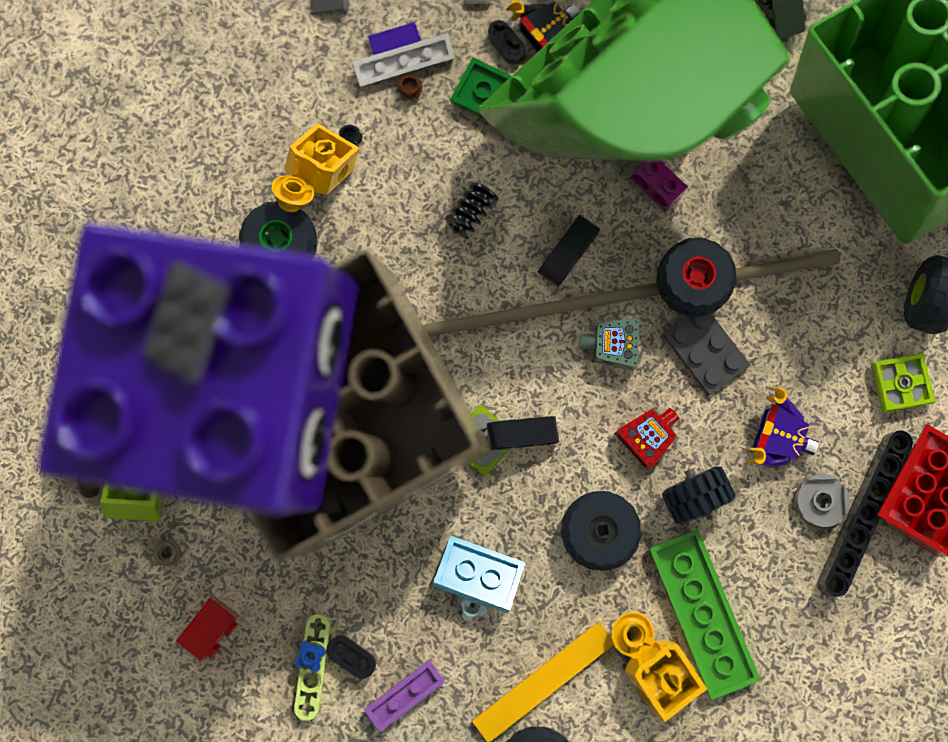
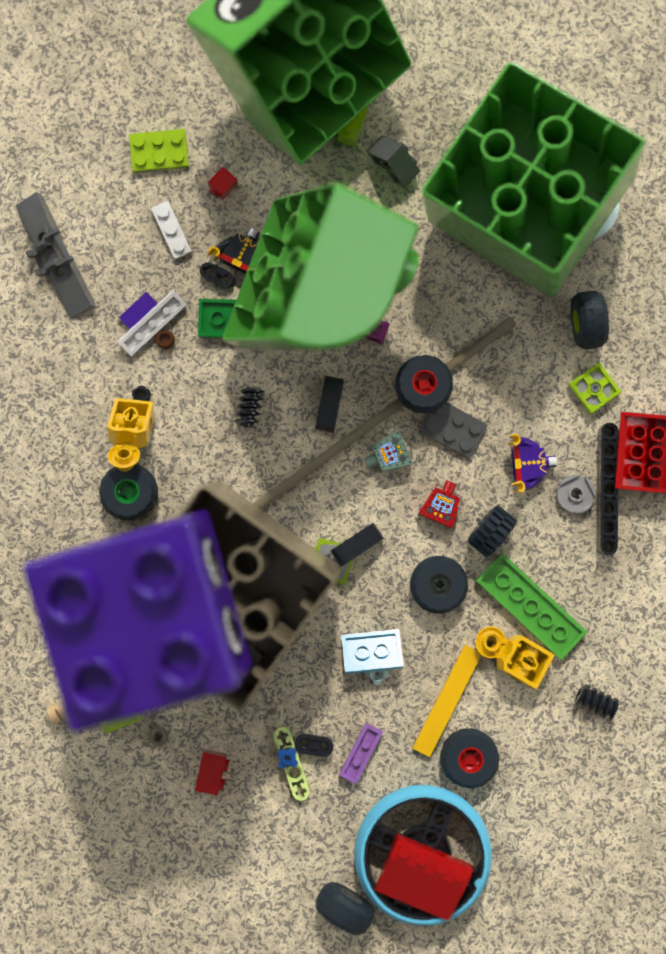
camera: 25 degrees left, 5 degrees up
(185, 321) = (122, 599): dark grey plate -> none

